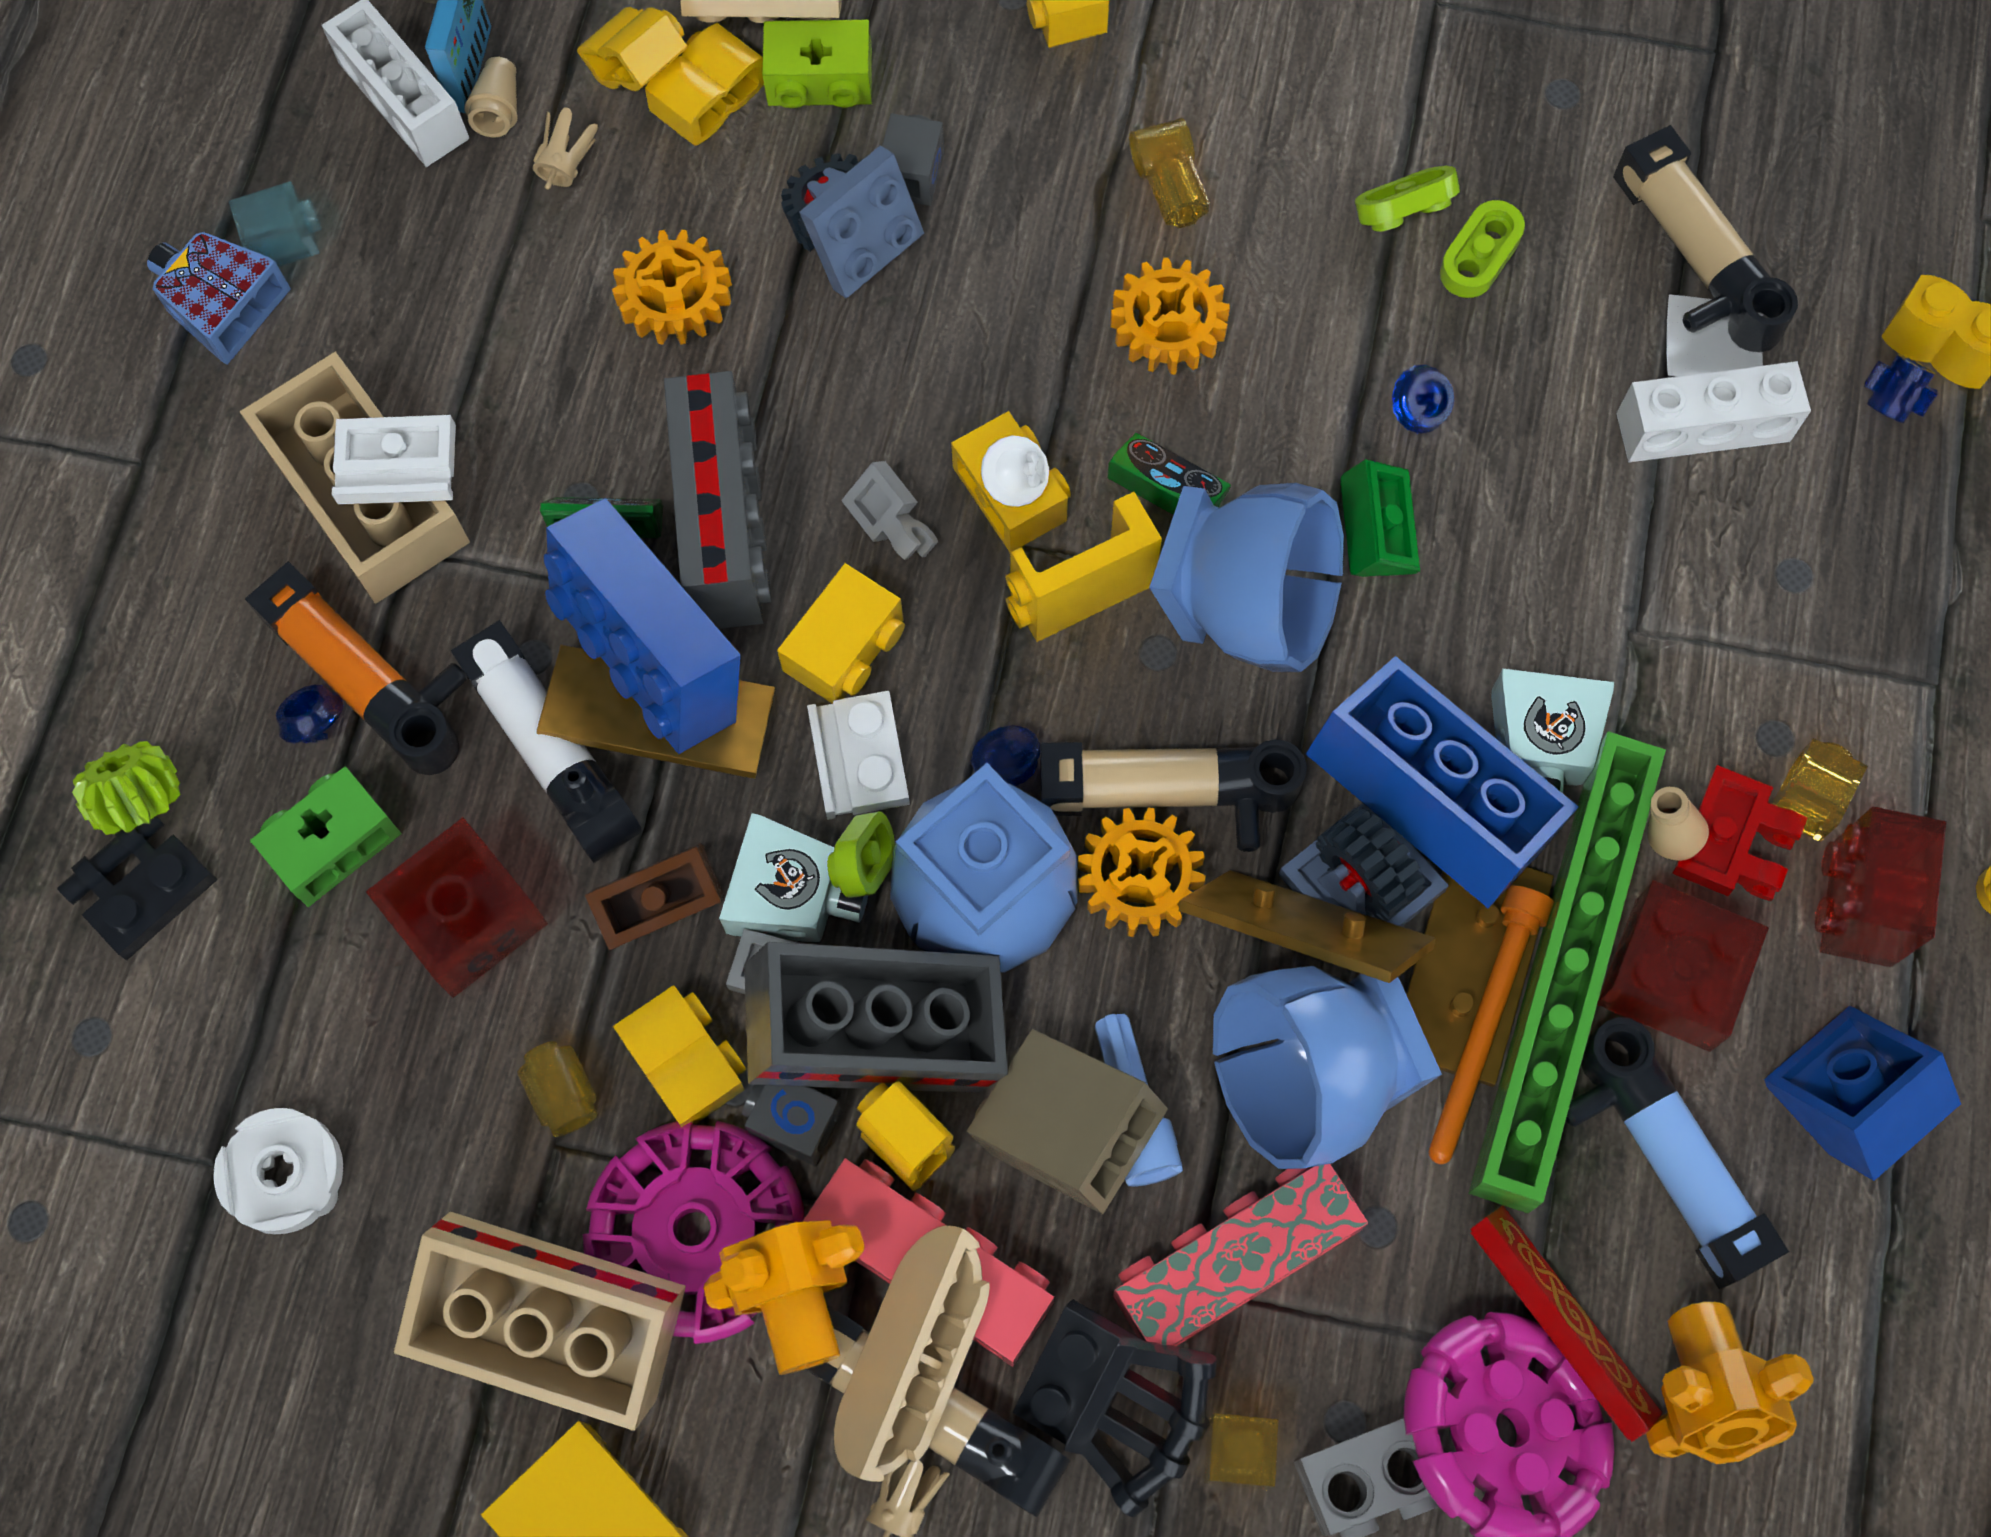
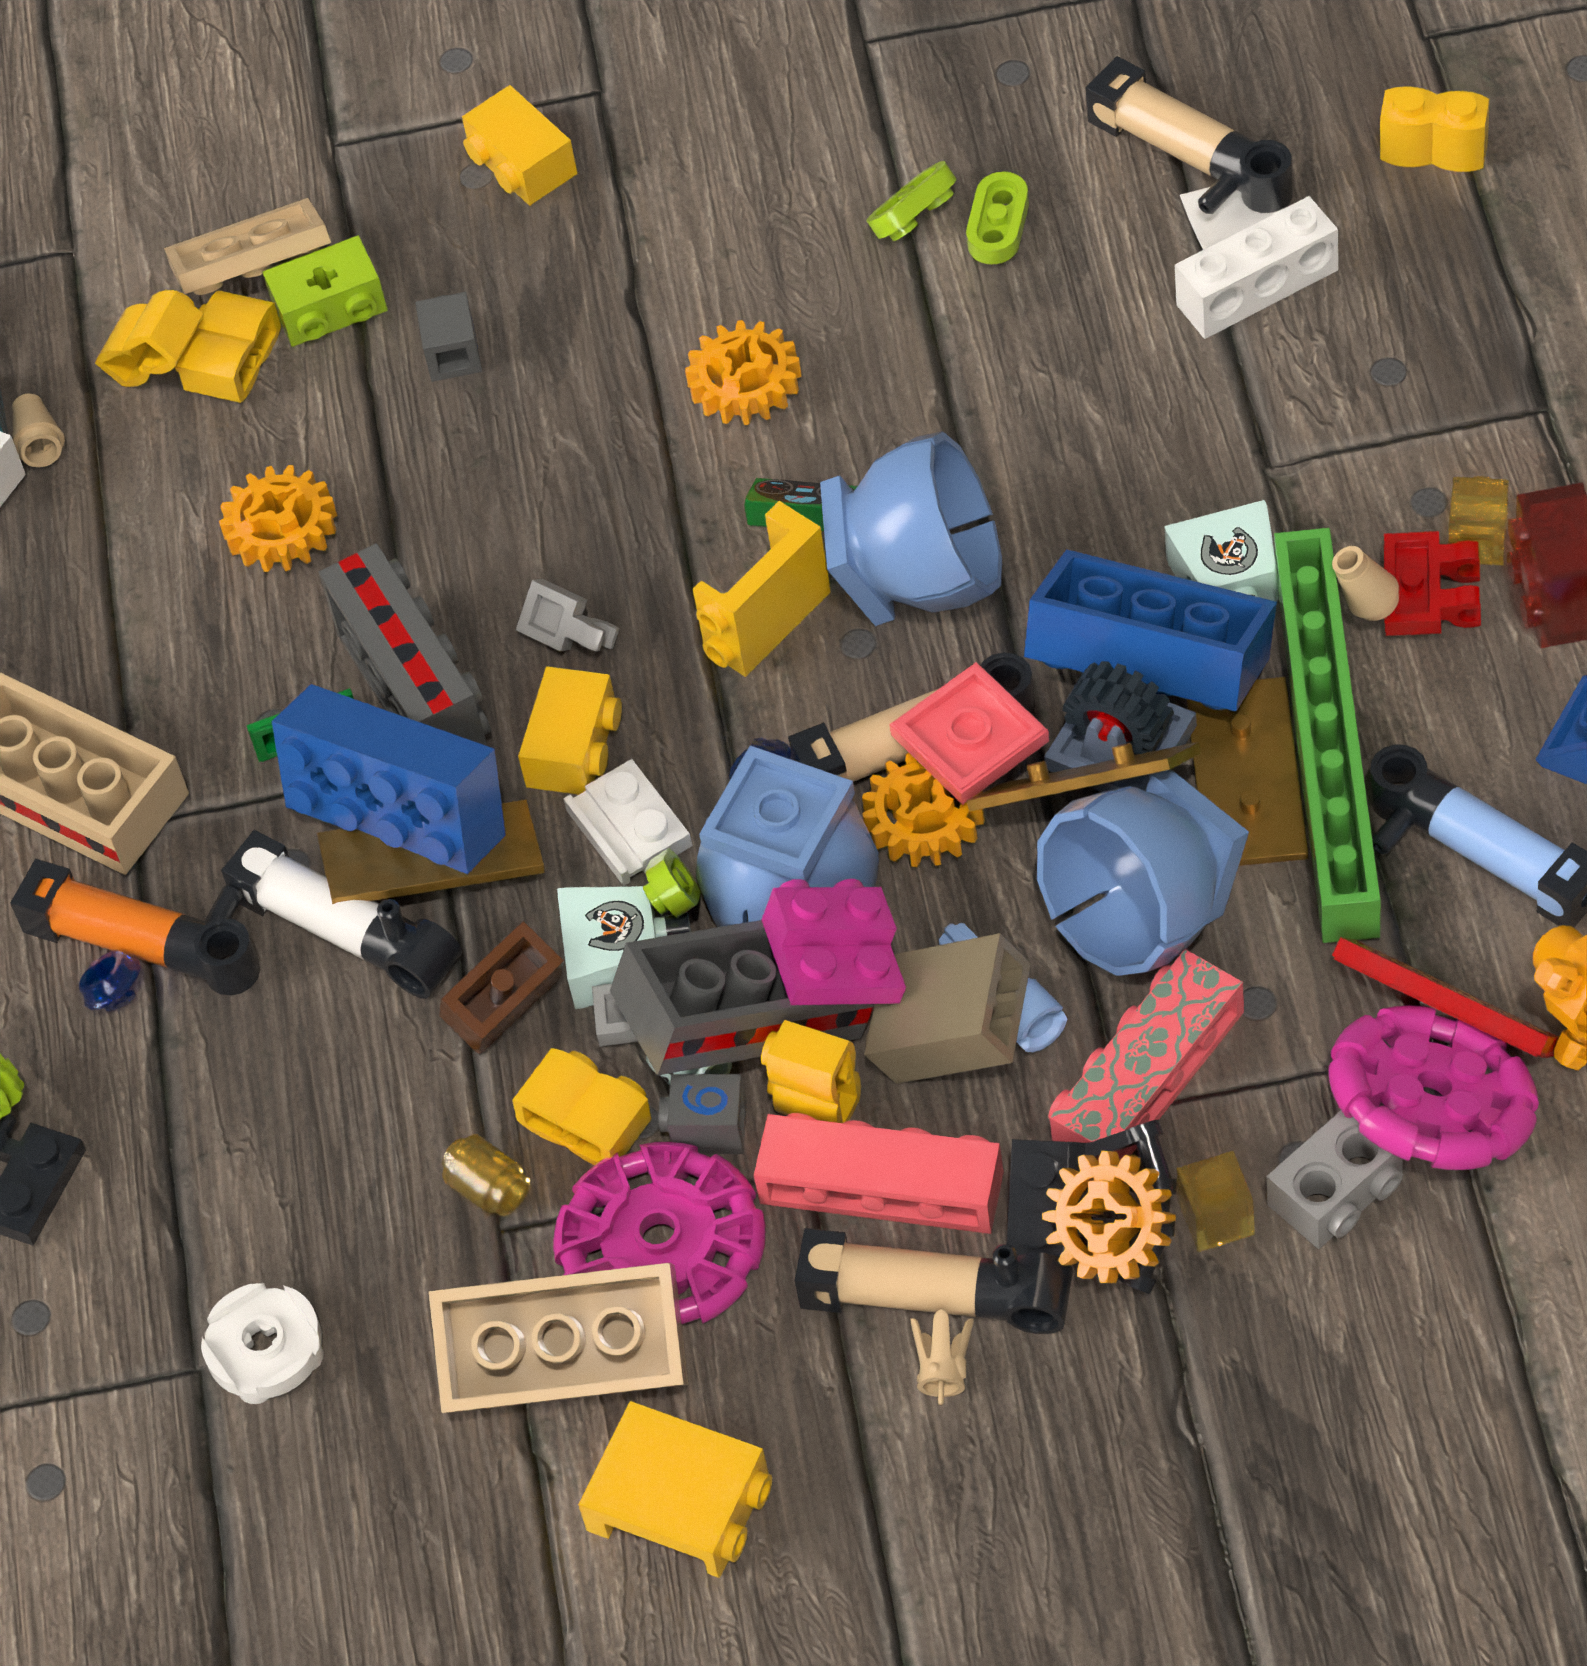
camera: 15 degrees left, 15 degrees down
(314, 864) = (174, 1066): bright green brick -> none
(394, 459) = (102, 729): white plate -> none
(457, 907) = (326, 1067): clear red brick -> none
(552, 160) = (118, 461): tan piece -> none
(785, 1279) = (760, 1211): light orange piece -> none
(852, 215) = (418, 397): sand blue plate -> none
(912, 1355) = (897, 1218): tan brick -> none
(980, 1012) = (833, 943): none -> dark pink plate
(1013, 524) = (661, 553): yellow brick -> none
(1015, 471) = (665, 531): white hat -> none
(1129, 1445) = (1108, 1242): none -> light orange gear
(1167, 160) = (682, 250): clear yellow piece -> none
(1216, 820) = (969, 733): none -> coral tile
(1379, 520) = (1006, 464): green slope -> none
(1422, 399) = (999, 353): clear blue hat -> none
(1524, 914) = (1271, 706): orange piece -> none
(1683, 966) = (1424, 692): clear red brick -> none
(1900, 388) = (1411, 188): clear blue gear -> none

